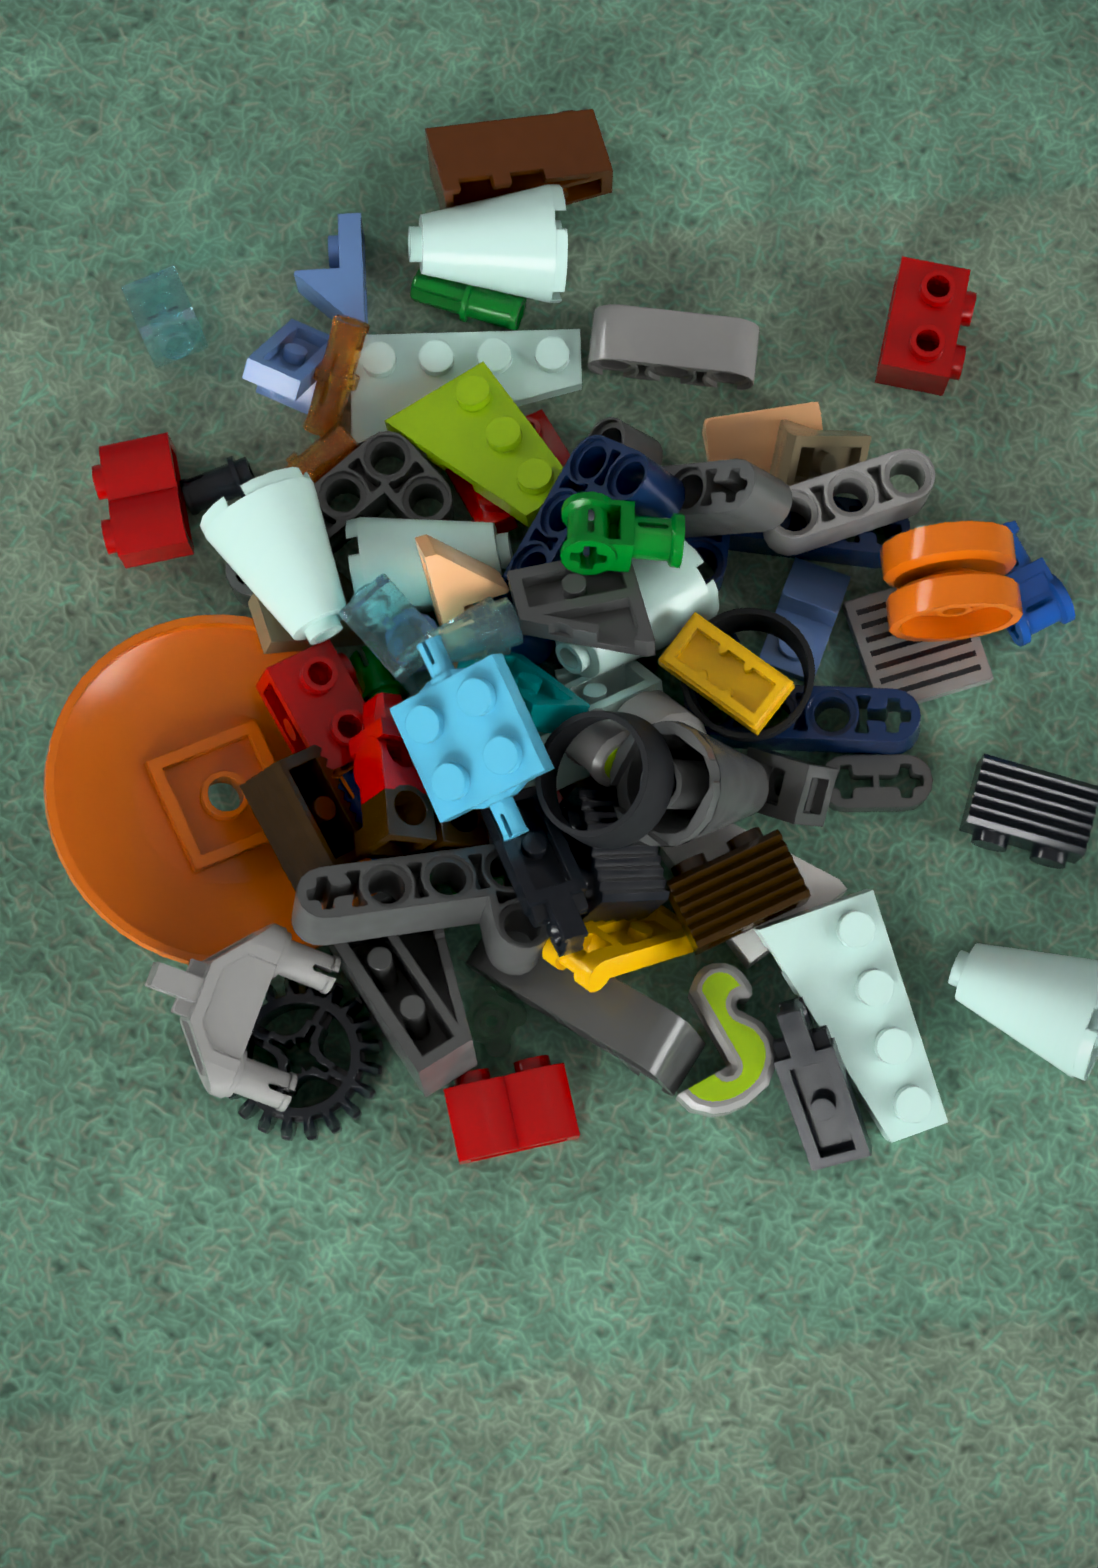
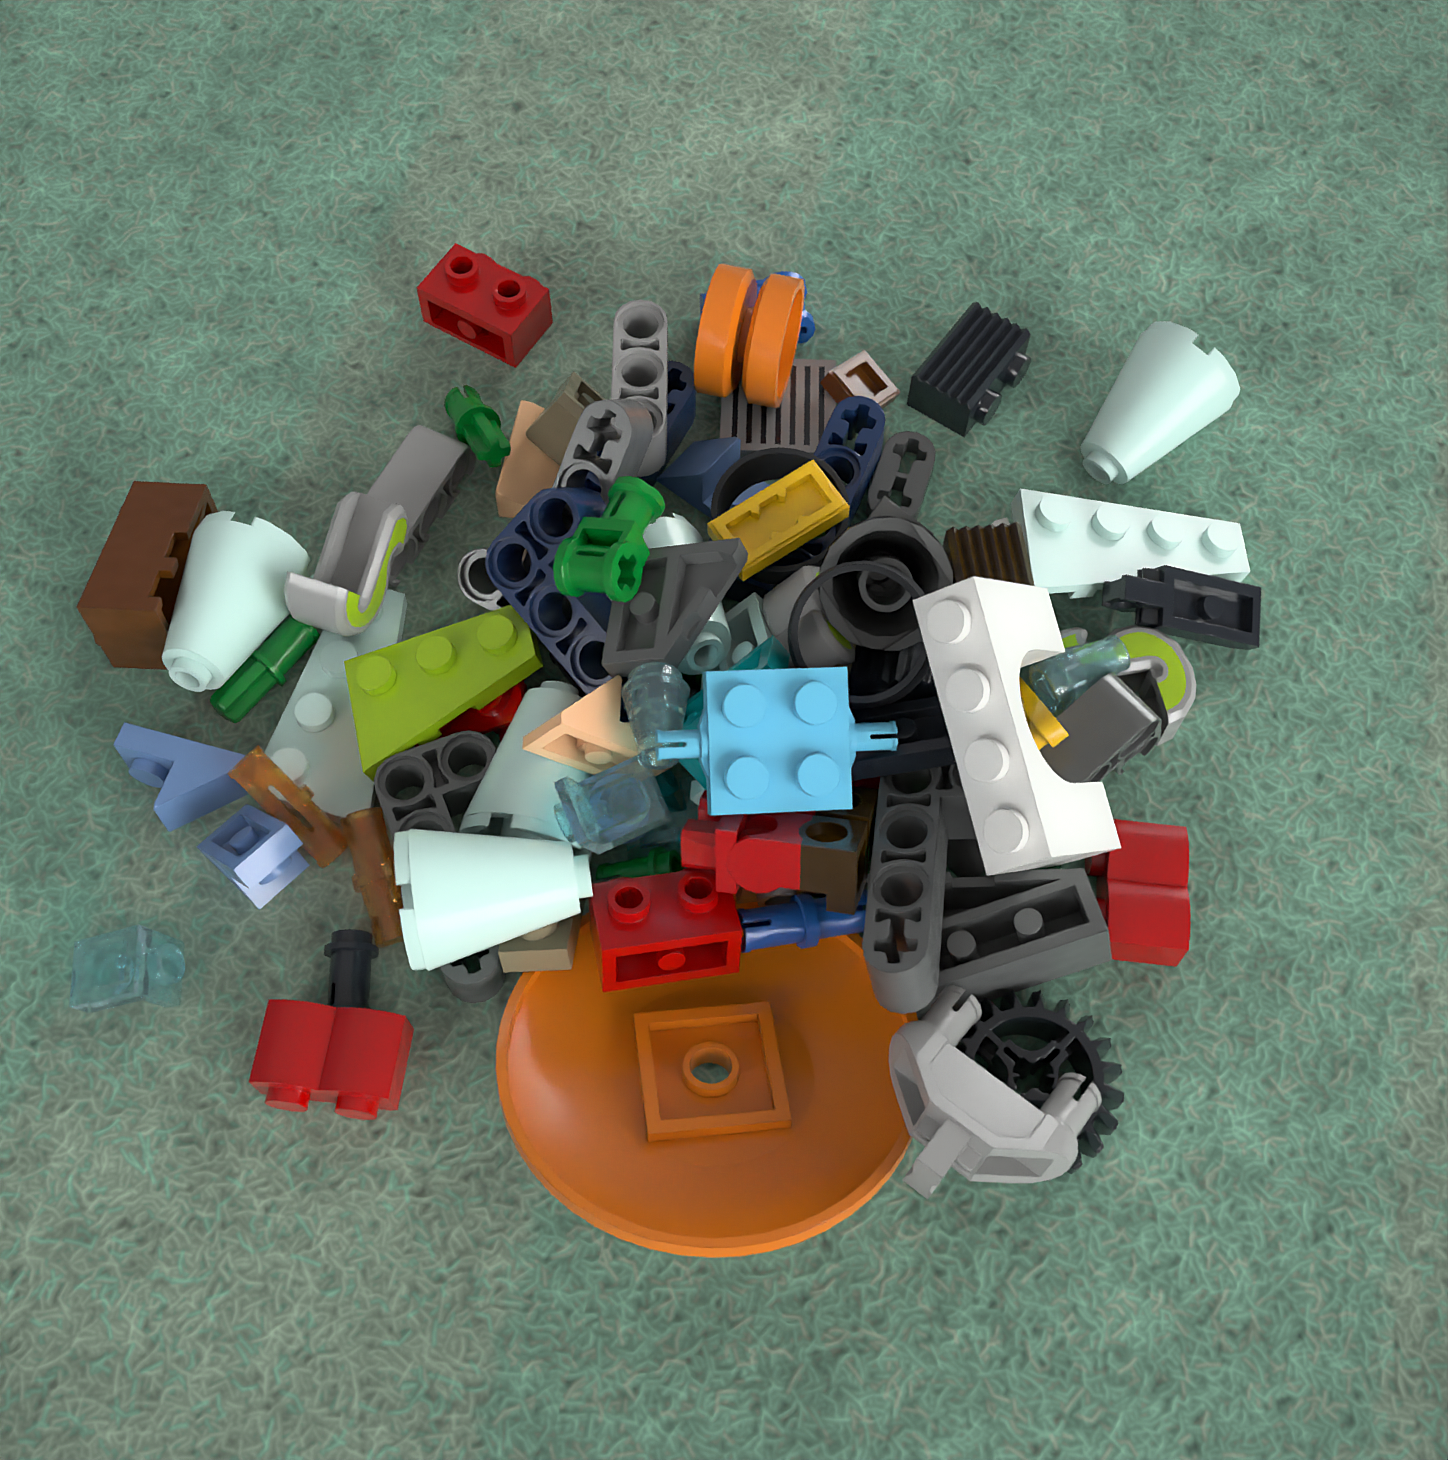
camera: 75 degrees left, 15 degrees down
(303, 813) = (785, 968): dark brown brick -> none
(563, 329) = (351, 567): none -> light grey animal
(599, 871) = (1019, 807): none -> white arch
(688, 993) = (1068, 675): none -> clear light blue cone
(775, 375) = (477, 425): none -> green axle
(968, 711) = (860, 378): none -> tile

